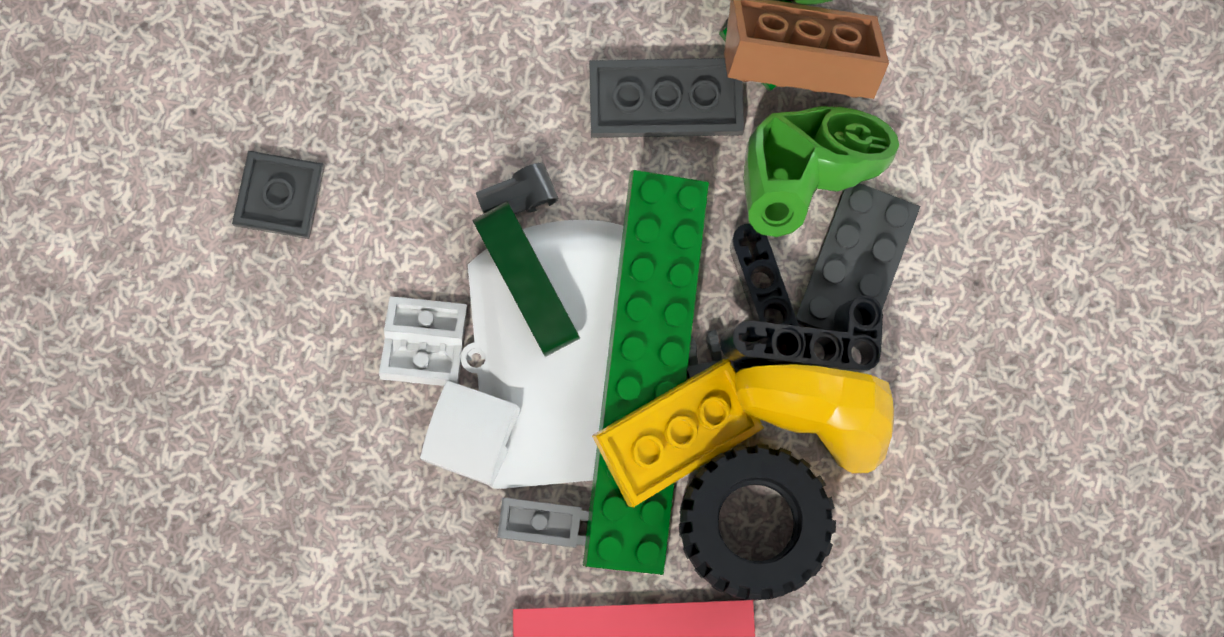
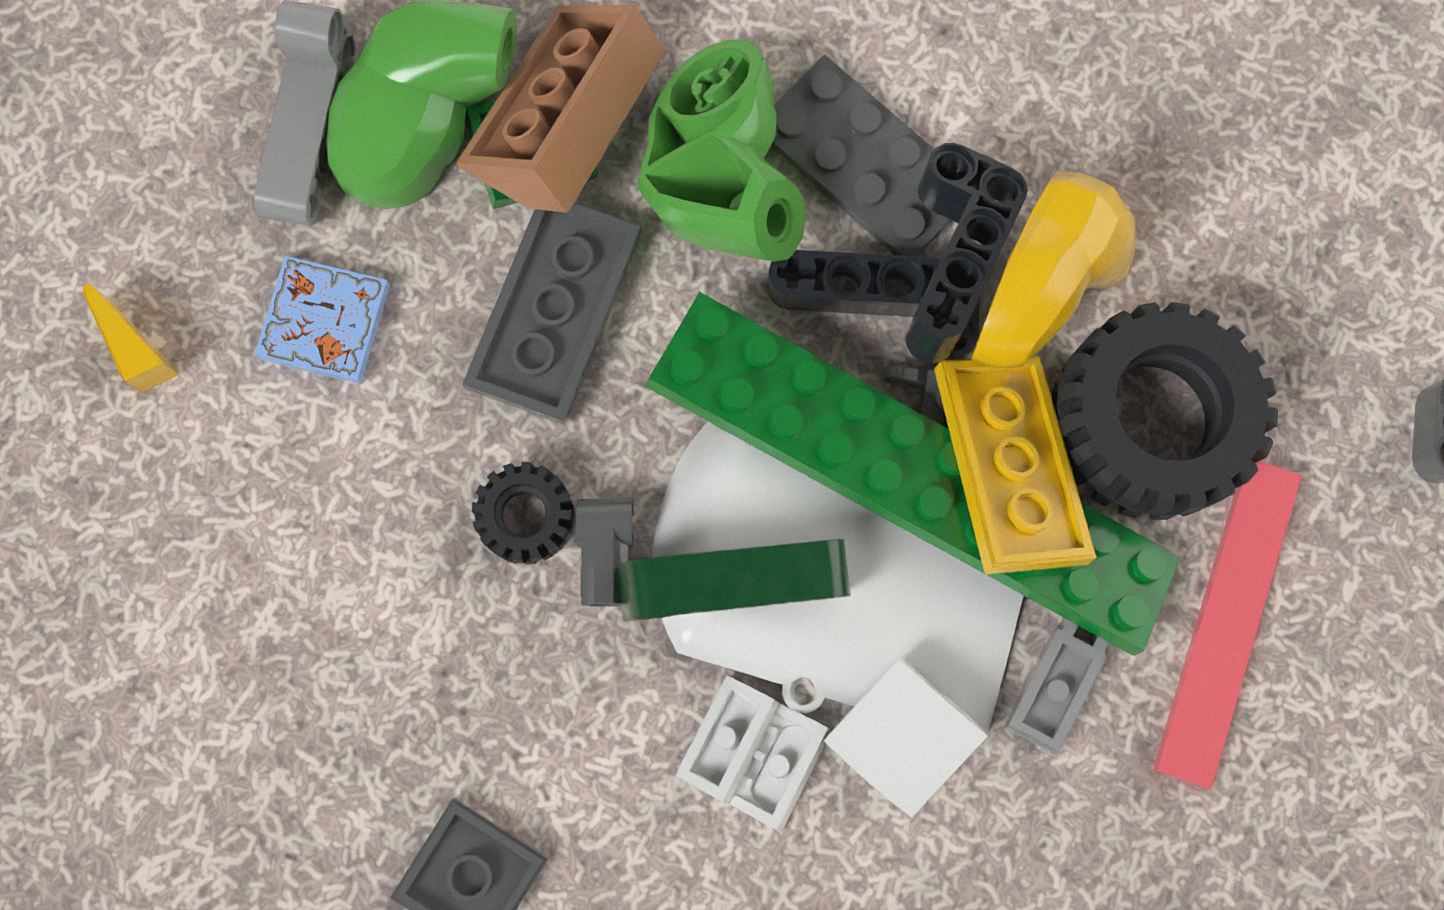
camera: 65 degrees left, 0 degrees up
(515, 112) = (505, 486): none -> black tyre

